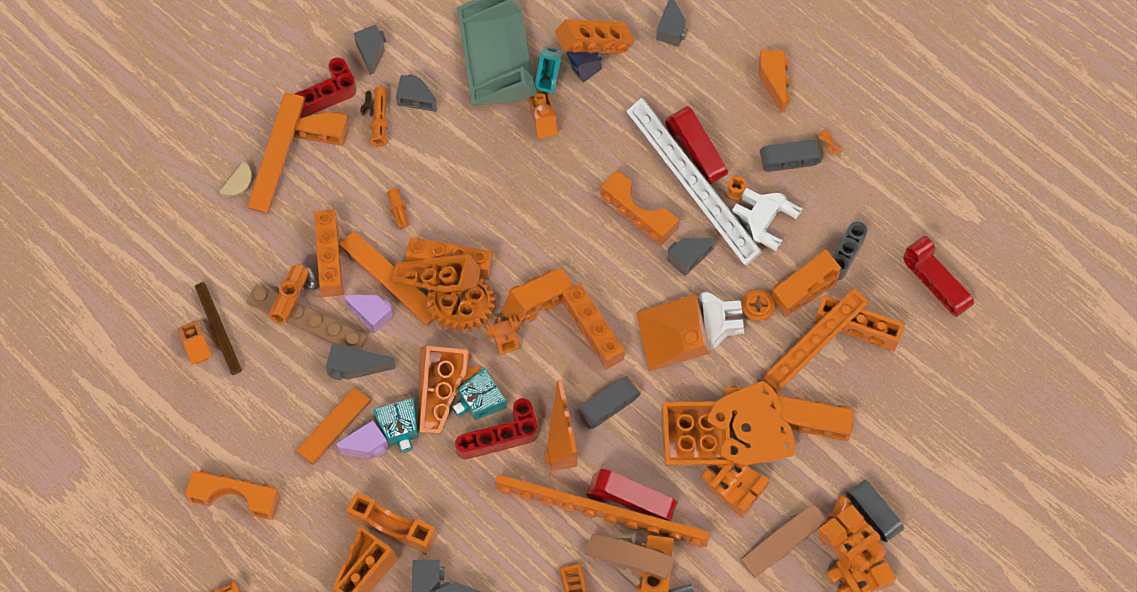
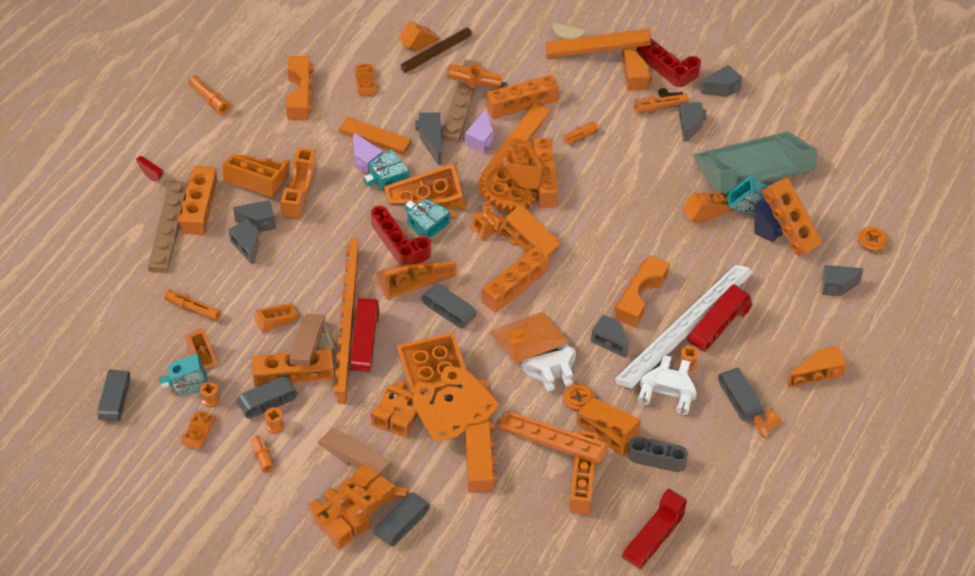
camera: 75 degrees right, 15 degrees down
(240, 417) = (365, 79): none -> orange slope

